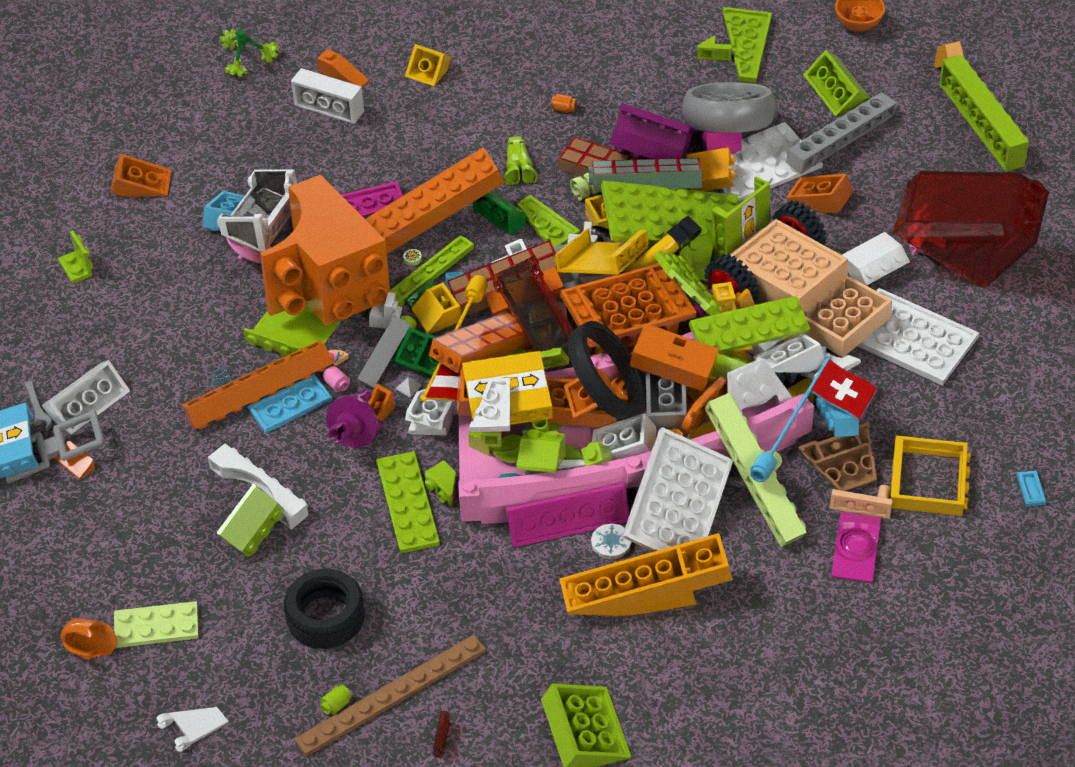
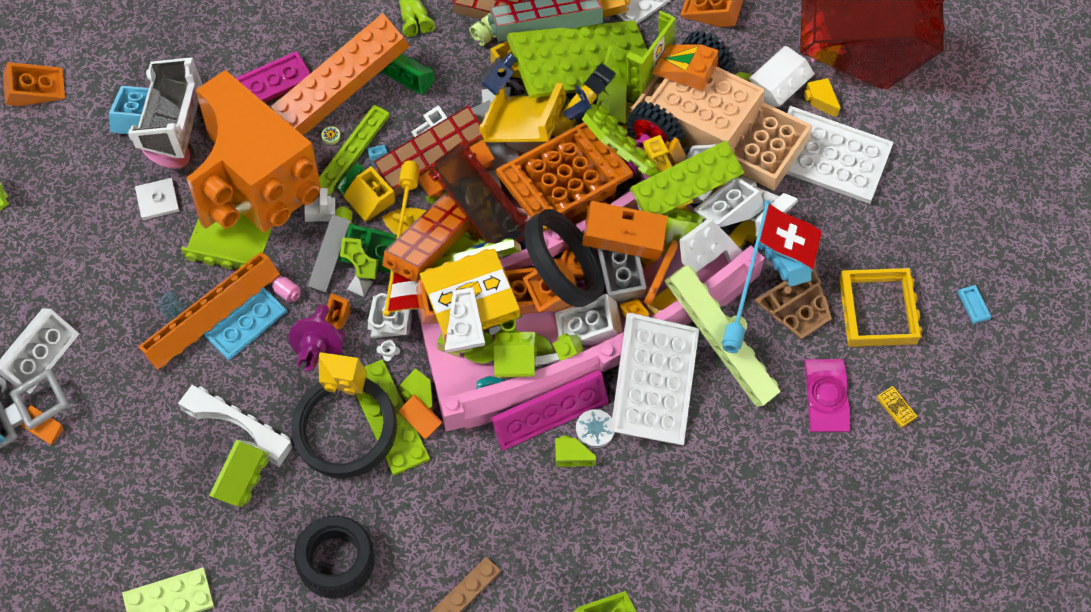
camera: 15 degrees left, 15 degrees up
(232, 288) = (157, 199): none -> white plate
(337, 357) = (281, 262): tile -> none
(368, 446) = (341, 373): none -> yellow slope
(379, 532) = (359, 466): none -> black tyre
(416, 366) = (364, 265): none -> lime tile
(422, 440) = (388, 344): none -> white plate
(438, 503) = (420, 416): none -> orange slope
(547, 222) = (455, 77): lime wing -> none
(580, 221) = (495, 80): none -> dark blue torso
(580, 556) = (572, 453): none -> lime slope
(648, 581) = (643, 473): light orange slope -> none
(663, 247) = (577, 111): none -> dark blue bracket
(776, 228) = (687, 64): none -> orange slope
(863, 504) = (826, 349): light nougat piece -> none
(914, 284) = (822, 97): none -> yellow slope
(927, 567) = (896, 407): none -> yellow tile

